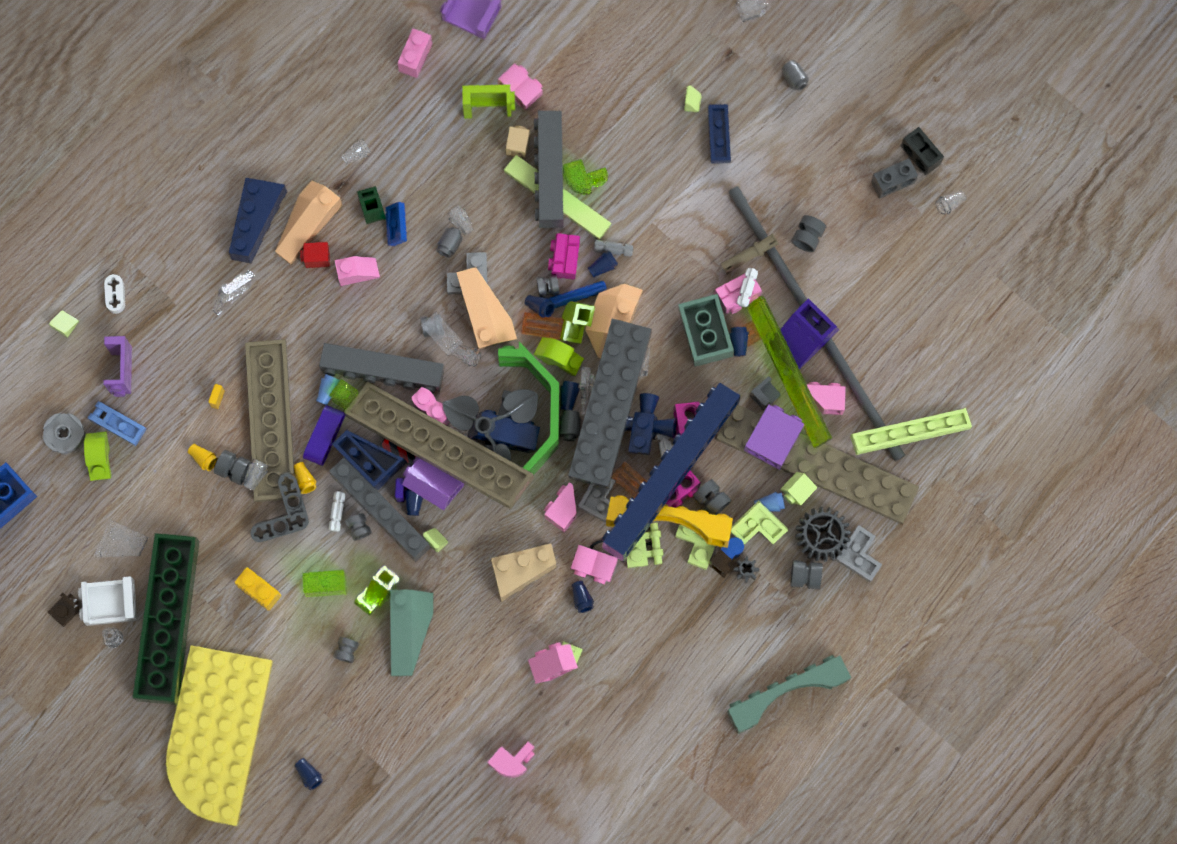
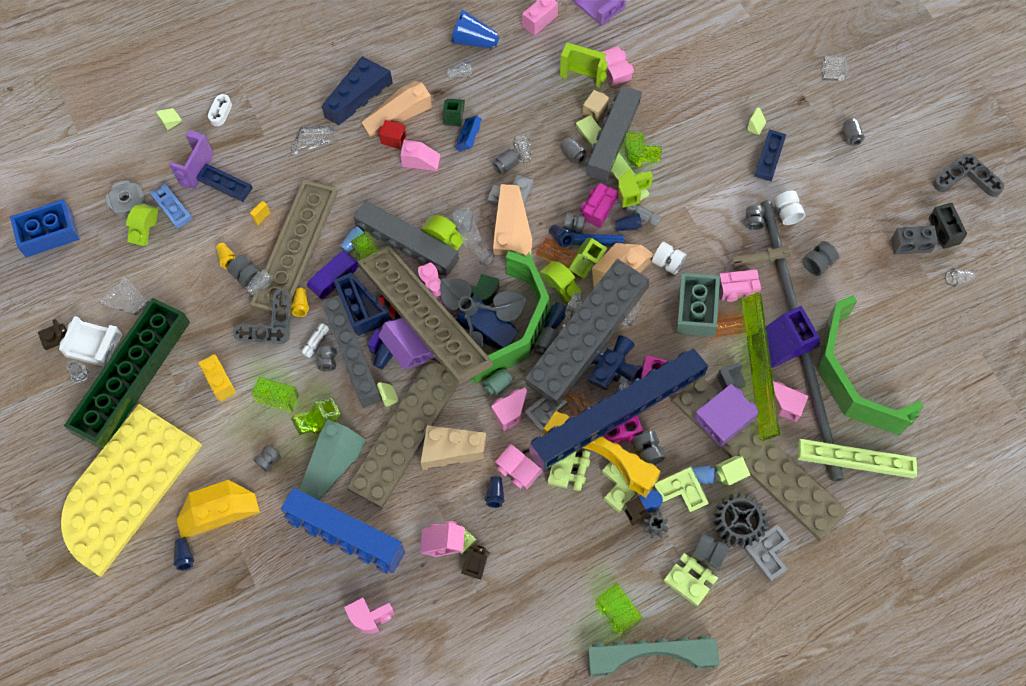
camera: 25 degrees right, 10 degrees down
(161, 376) = (224, 182): none -> dark blue plate
(317, 716) = (215, 507): none -> yellow wedge
(352, 102) = (473, 32): none -> blue cone
(417, 346) = (443, 230): none -> lime brick
(454, 691) = (343, 531): none -> blue brick
(468, 572) = (403, 434): none -> dark tan plate
(487, 394) = (486, 289): none -> dark green brick
(514, 203) = (573, 150): none -> flat silver brick
(539, 486) = (497, 382): none -> sand green brick
(589, 225) = (630, 187): none -> lime brick
(591, 670) = (475, 561): none -> dark brown bracket
(658, 290) = (666, 252): none -> white wheel
(728, 211) = (755, 217): none -> flat silver wheel
(739, 340) = (725, 323): dark blue cone -> none
(740, 663) = (618, 609): none -> clear neon green brick
(747, 287) = (748, 280): white axle -> none
(759, 188) = (789, 207): none -> white wheel
(794, 614) = (686, 584): none -> yellowish green plate
(871, 364) = (842, 389): none -> bright green panel
(927, 76) = (971, 171): none -> dark grey beam

